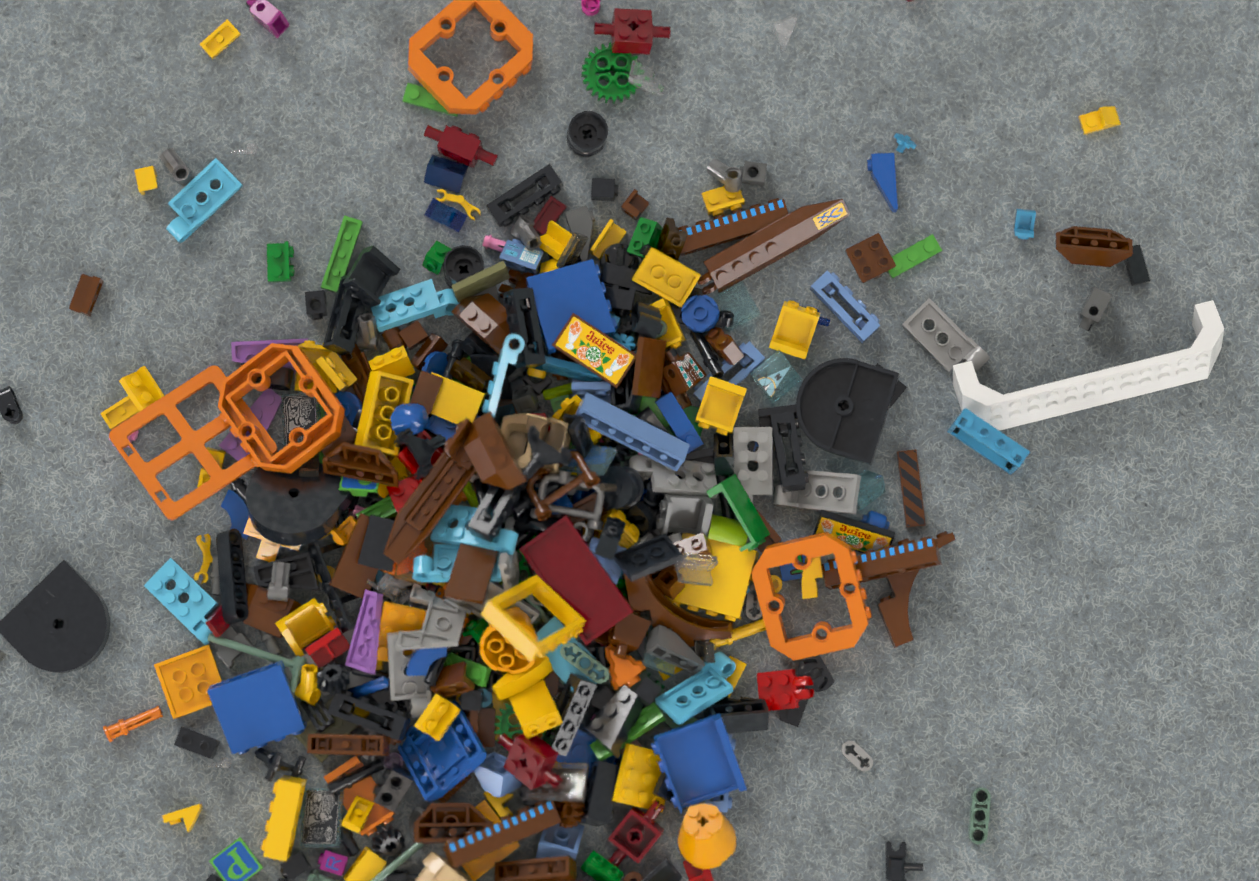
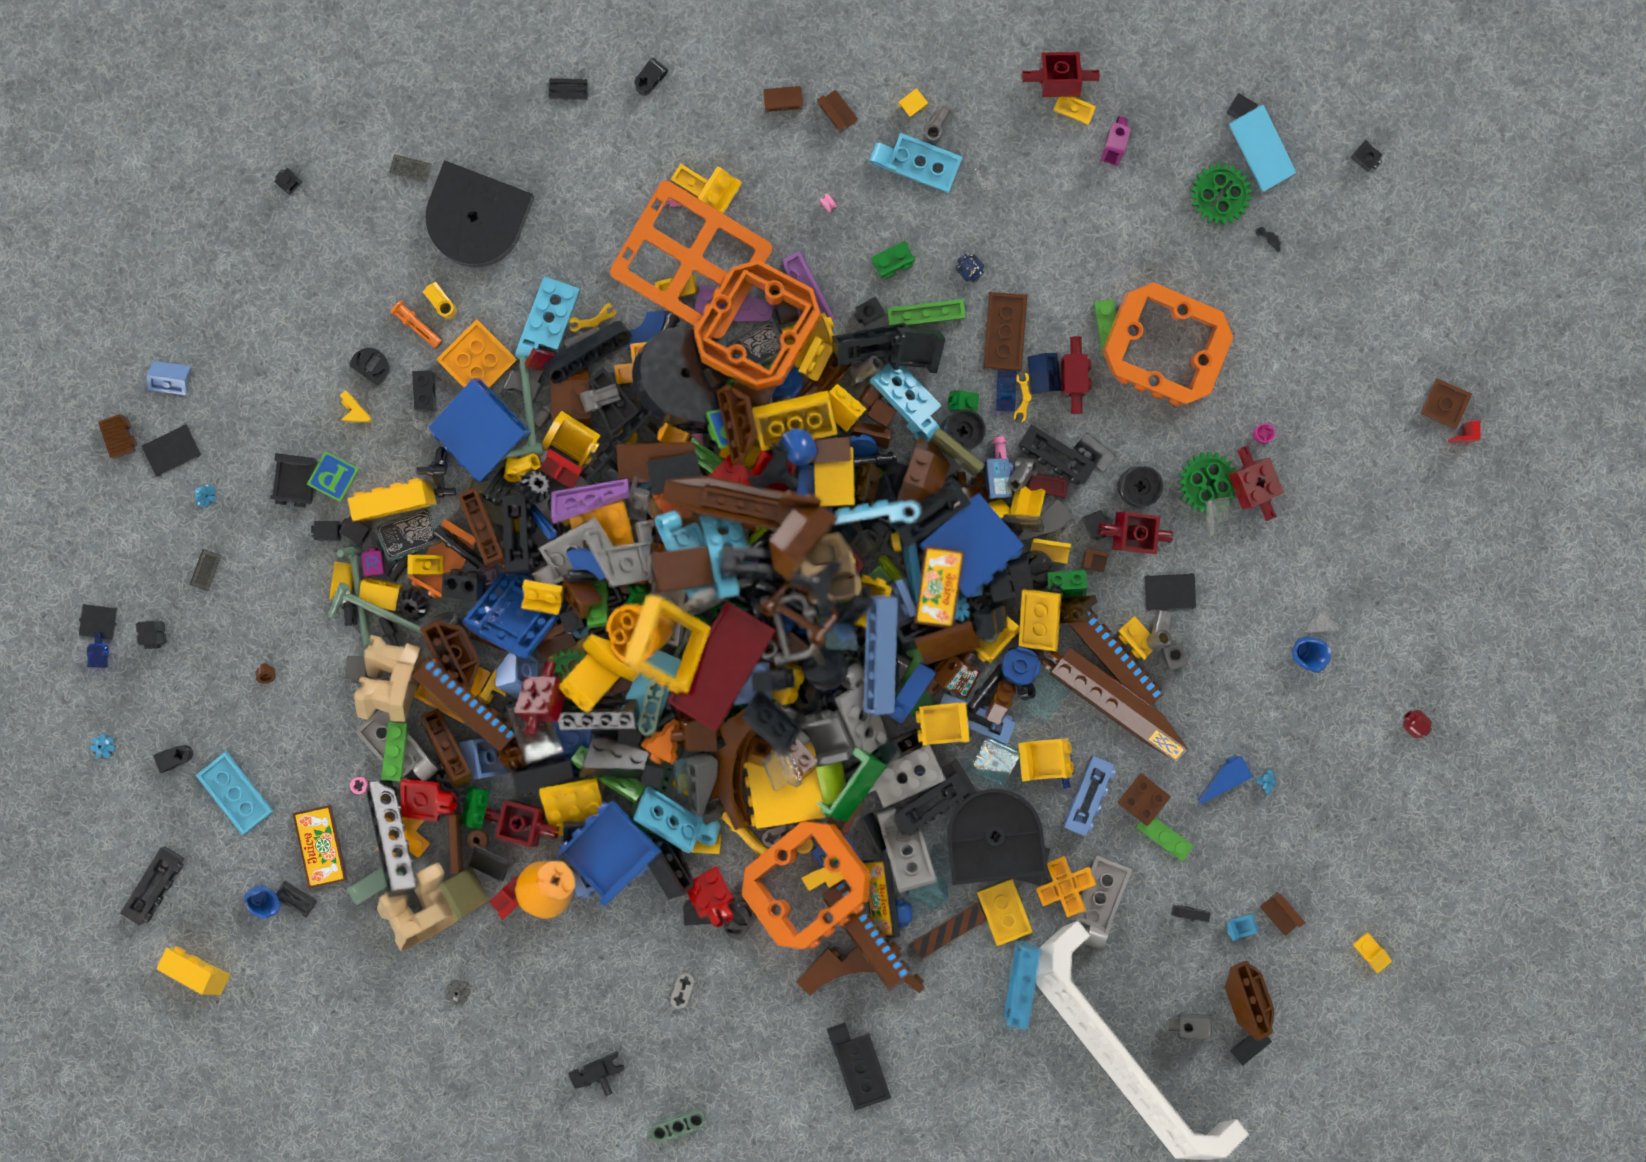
camera: 65 degrees right, 5 degrees up
(120, 251) = (837, 111): none -> reddish brown panel
(120, 691) = (440, 300): none -> yellow piece
(137, 781) = (367, 354): none -> black piece
(184, 37) = (1060, 74): none -> dark red brick
(200, 297) = (828, 203): none -> bright pink bush
(319, 196) = (970, 267): none -> dark blue head
(391, 191) = (1005, 331): none -> reddish brown tile
(537, 160) = (1094, 451): none -> slope
(627, 156) = (1125, 532): none -> dark red brick
(694, 151) = (1170, 591): none -> black piece
(789, 515) = (873, 831): none -> black slope
(807, 51) = (1311, 654): none -> blue hair
(916, 430) = (1004, 912): none -> yellow tile
(918, 363) = (1066, 886): none -> light orange plate
(982, 627) = (851, 1052): none -> black hinge
(991, 263) = (1190, 913): none -> black piece
(1028, 183) = (1282, 913): none -> reddish brown panel

